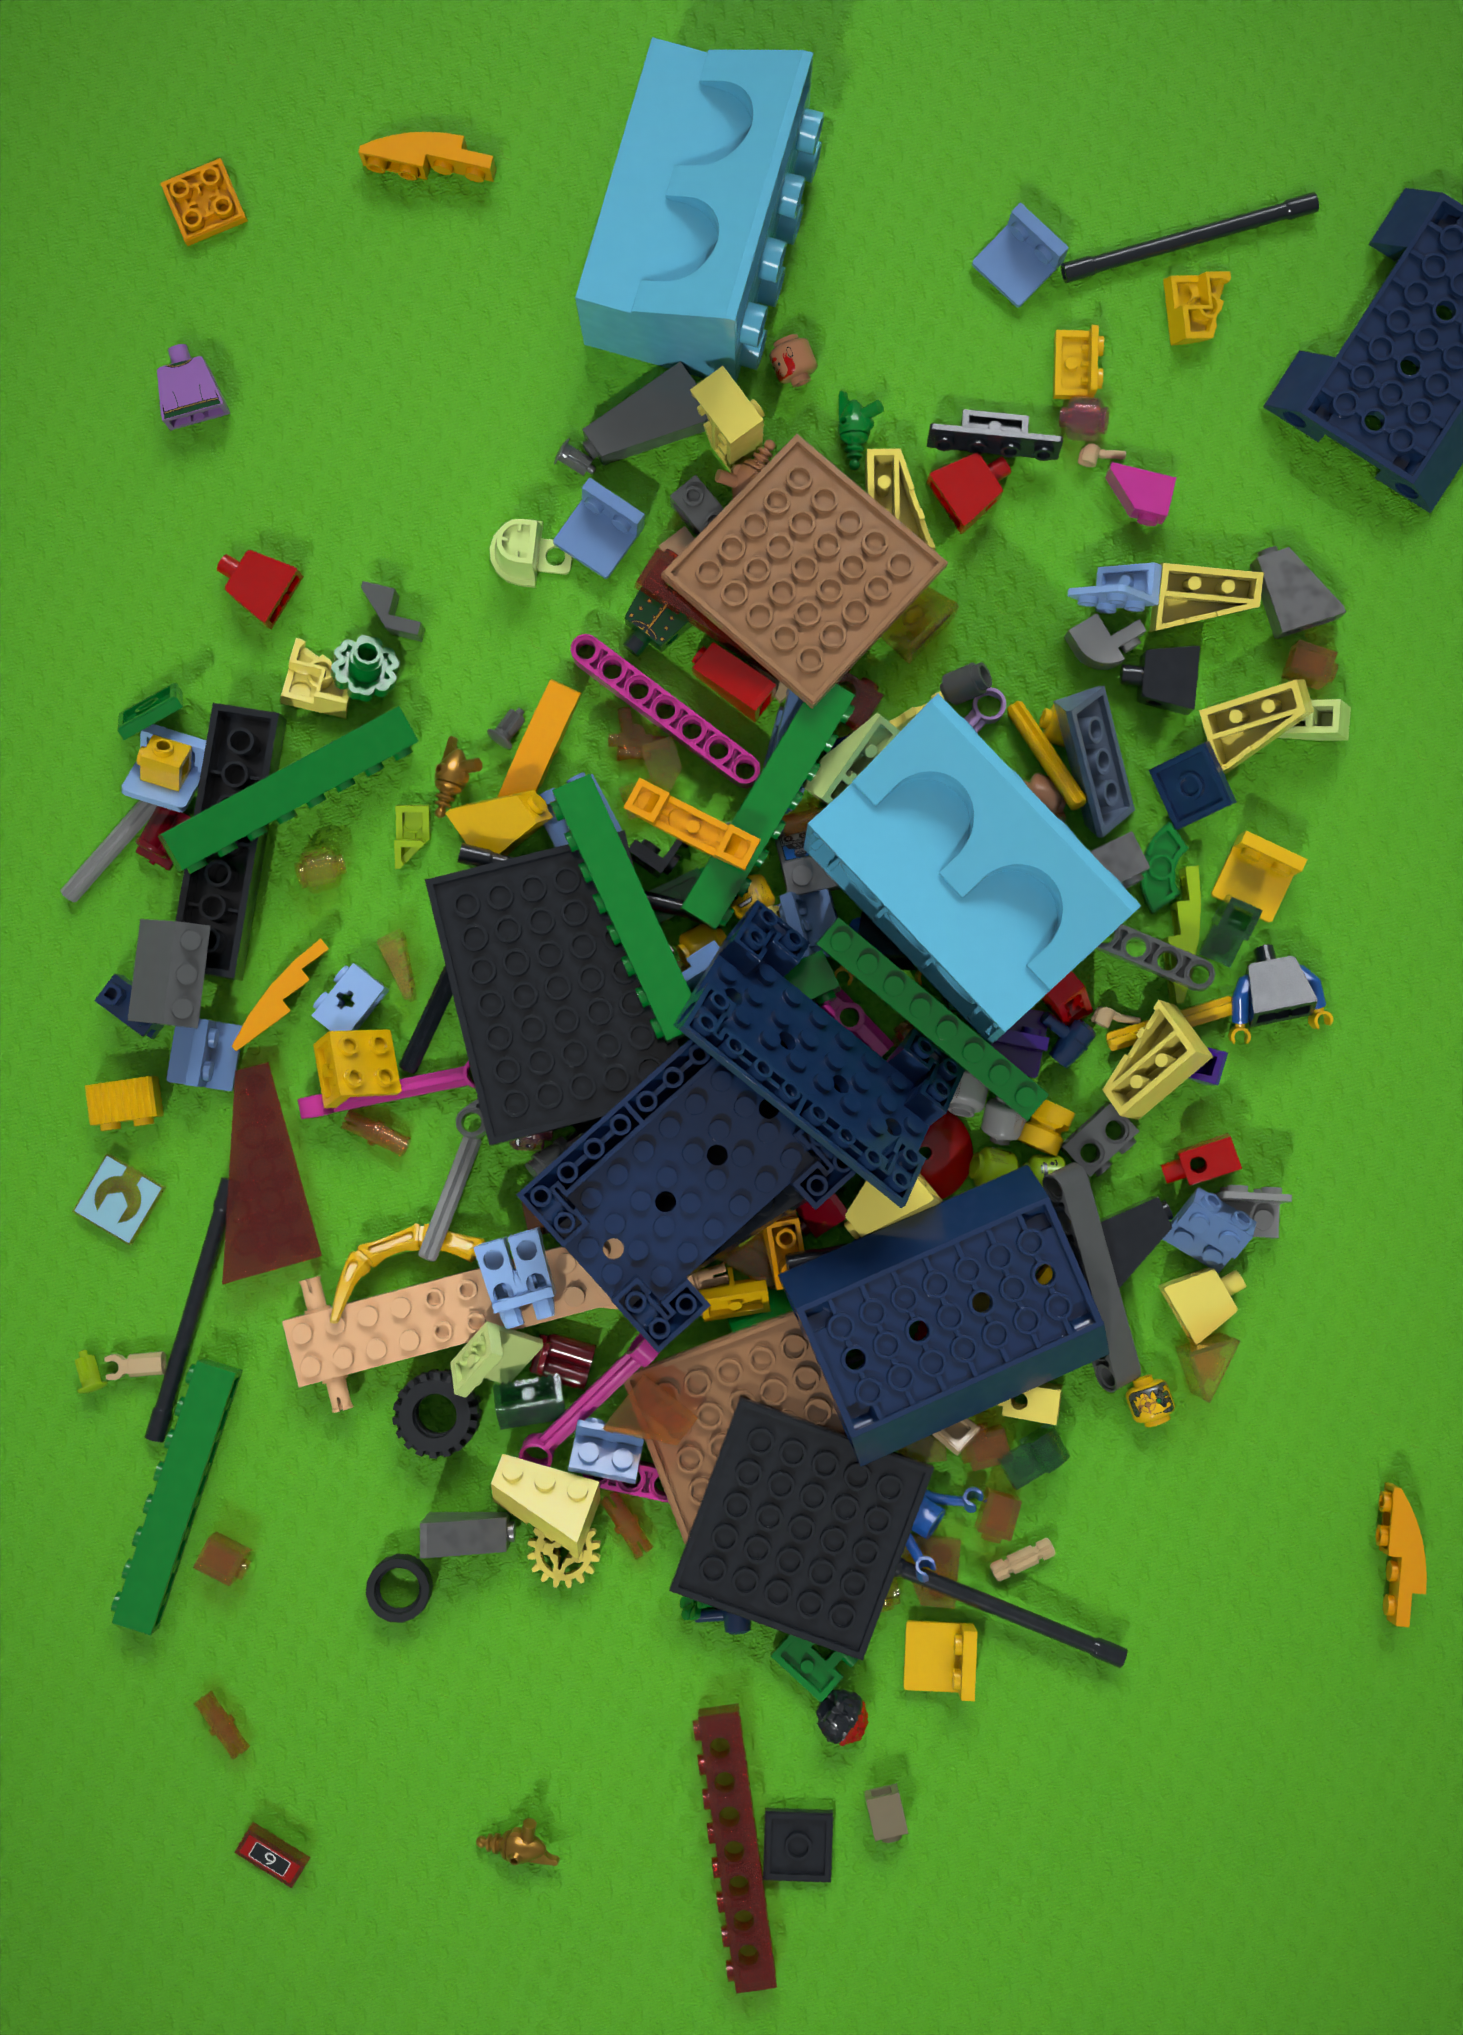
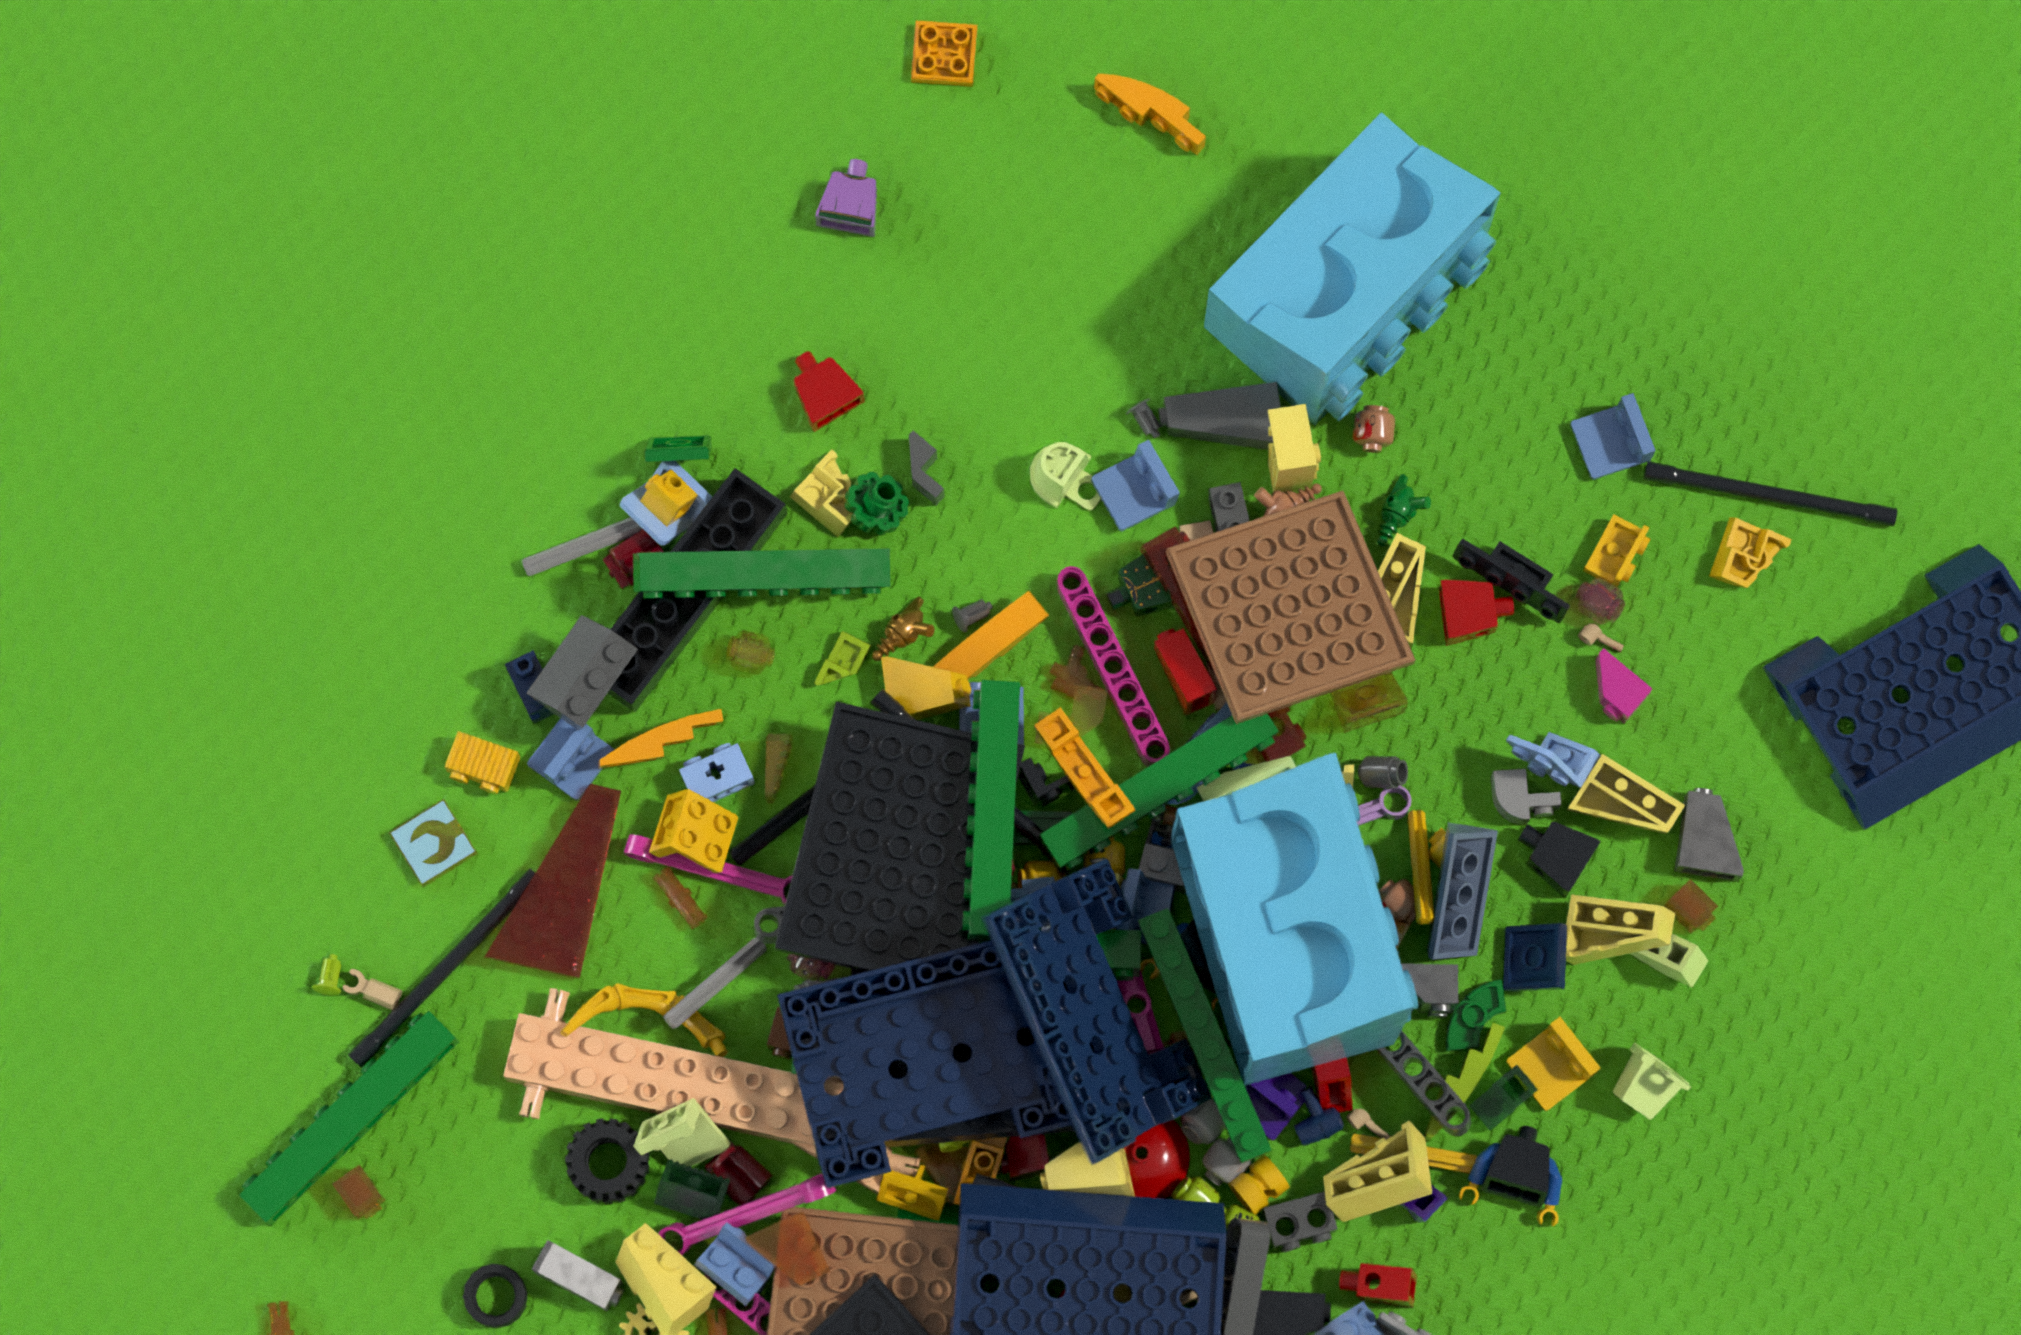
camera: 25 degrees right, 10 degrees down
(520, 1286) = (739, 1084): light blue hips -> none
(1353, 849) = (1648, 1082): none -> yellowish green container

